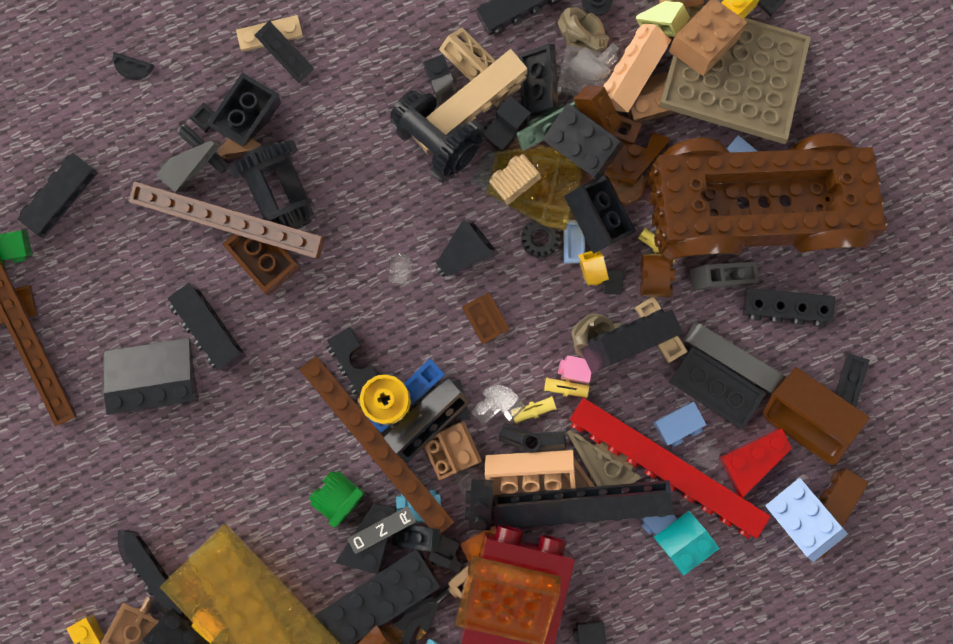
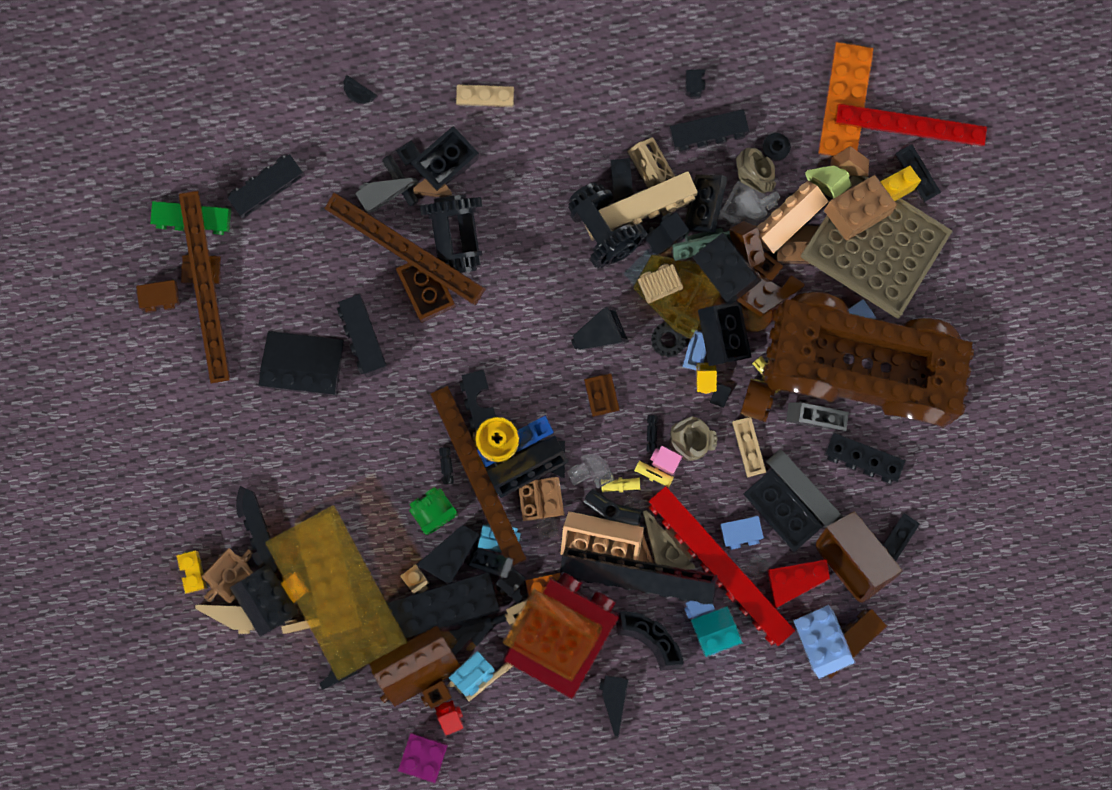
camera: 15 degrees right, 0 degrees up
(284, 51) = (493, 116): black plate -> none
(338, 443) = (446, 465): none -> black axle
(339, 578) = (415, 580): none -> tan bracket
(381, 530) = (463, 548): dark grey sticker -> none
(401, 270) = (541, 333): clear brick -> none
(480, 503) = (552, 551): black brick -> none
(551, 344) = (651, 433): none -> black axle
(618, 566) = (653, 636): none -> black brick
(631, 339) = (718, 447): black brick -> none

